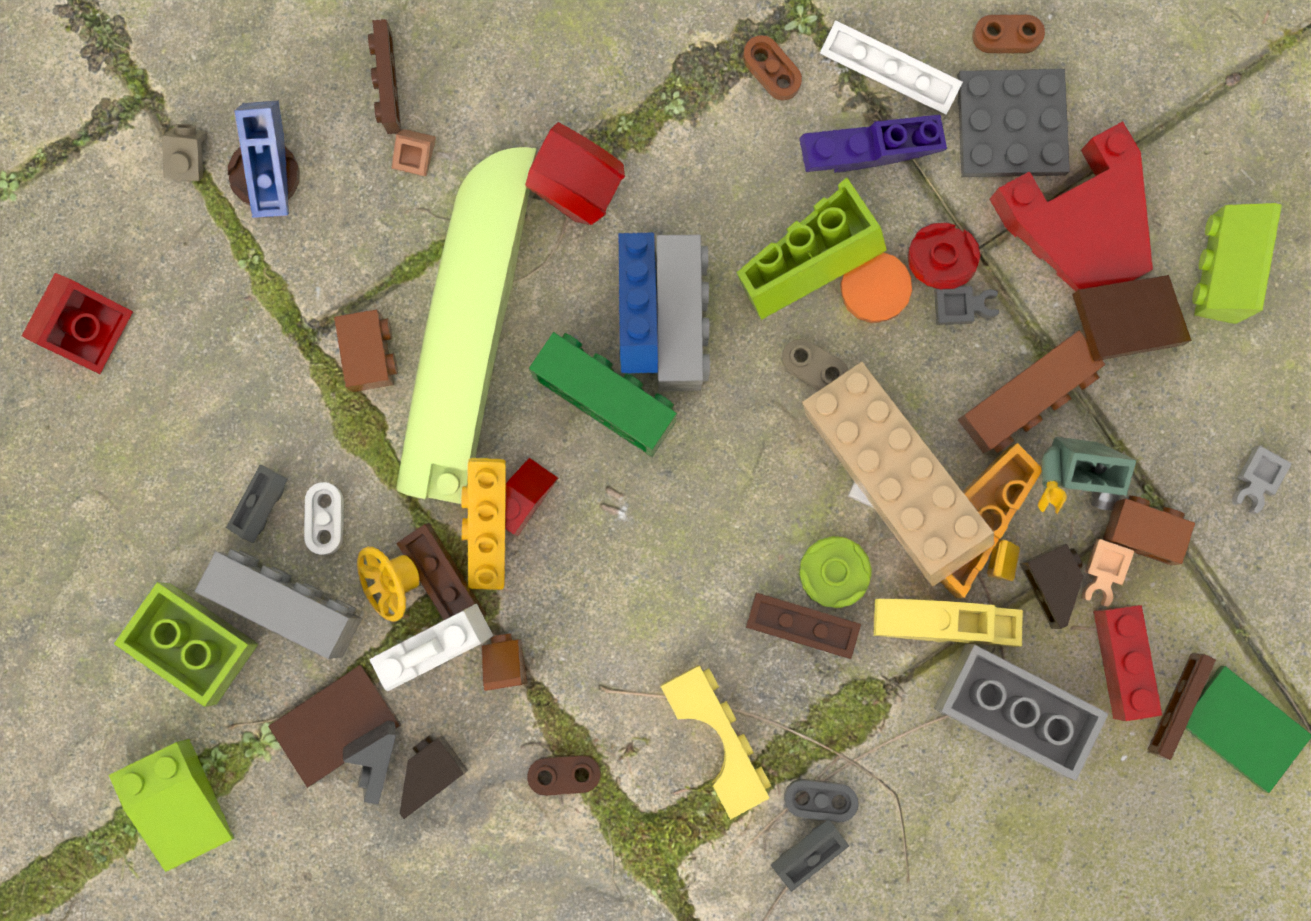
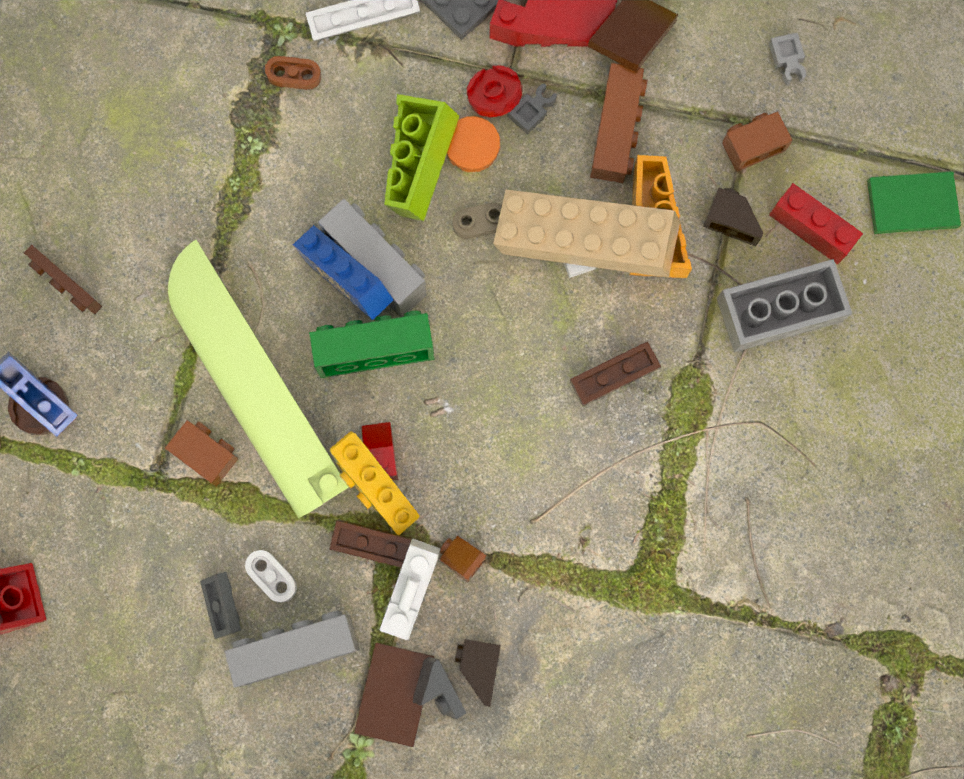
camera: 45 degrees left, 5 degrees down
(186, 644) = (256, 730): lime brick -> none
(391, 579) = (347, 573): yellow wheel -> none
(413, 152) = (121, 311): nougat slope -> none
(563, 775) = (559, 592): reddish brown plate -> none
(575, 175) = (235, 234): red slope -> none
(737, 782) = (664, 497): light yellow arch -> none
(809, 855) = (745, 501): dark grey plate -> none
(820, 800) = (720, 464): dark grey plate -> none
(835, 572) = (603, 327): lime tile -> none
(874, 145) = (394, 65): dark purple slope -> none
(948, 622) = (694, 293): light yellow slope -> none
(1003, 561) = (693, 232): yellow slope -> none
(1084, 467) = (689, 133): sand green torso -> none
(1107, 564) = (753, 180): light nougat plate -> none
(1181, 705) = (867, 221): reddish brown tile -> none

